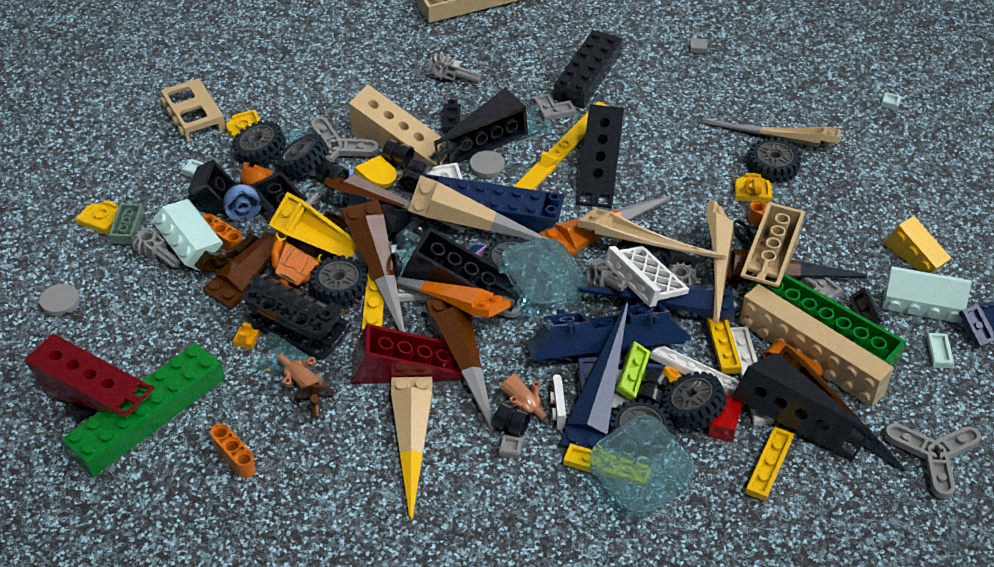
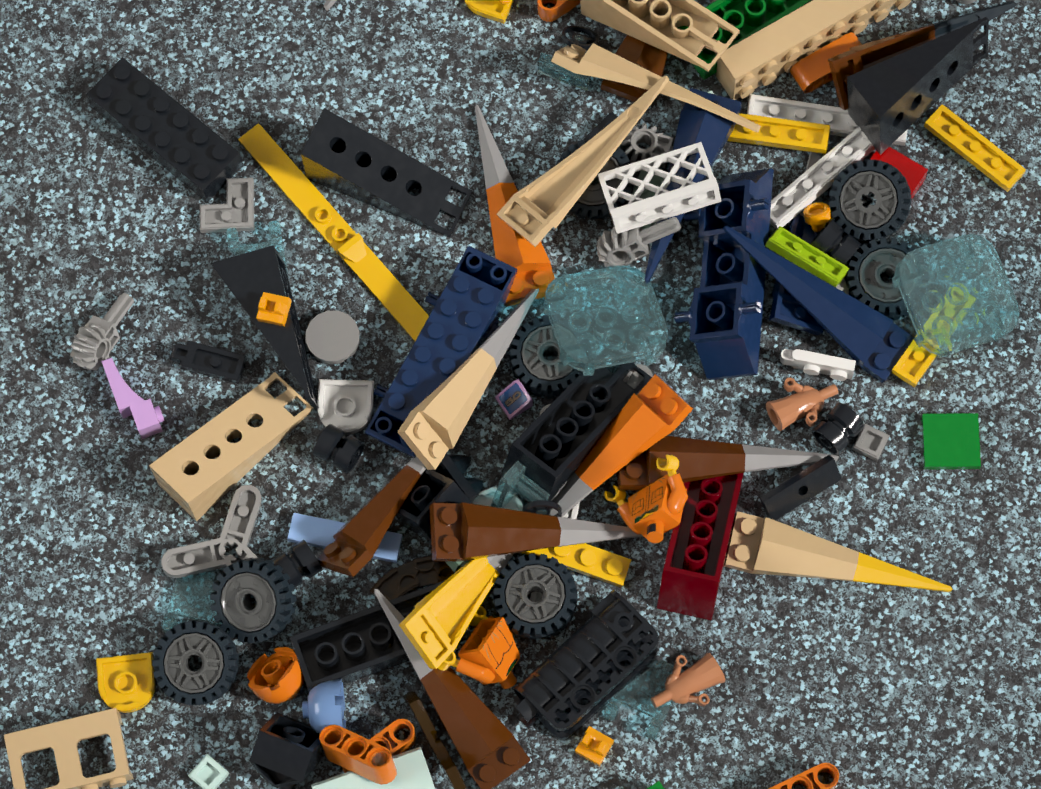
camera: 70 degrees left, 25 degrees up
(209, 210) = (358, 754): none -> orange beam
(313, 393) = (737, 667): reddish brown shield -> none
(377, 172) = (310, 498): yellow tile -> none
(397, 153) = (279, 459): black wheel -> none
(415, 88) = (129, 403): none -> lavender slope
(417, 321) = (655, 507): none -> orange torso
(460, 408) = (800, 488): none -> black tile
(483, 112) = (273, 309): none -> light orange tile
(528, 495) = (951, 441): none -> green tile

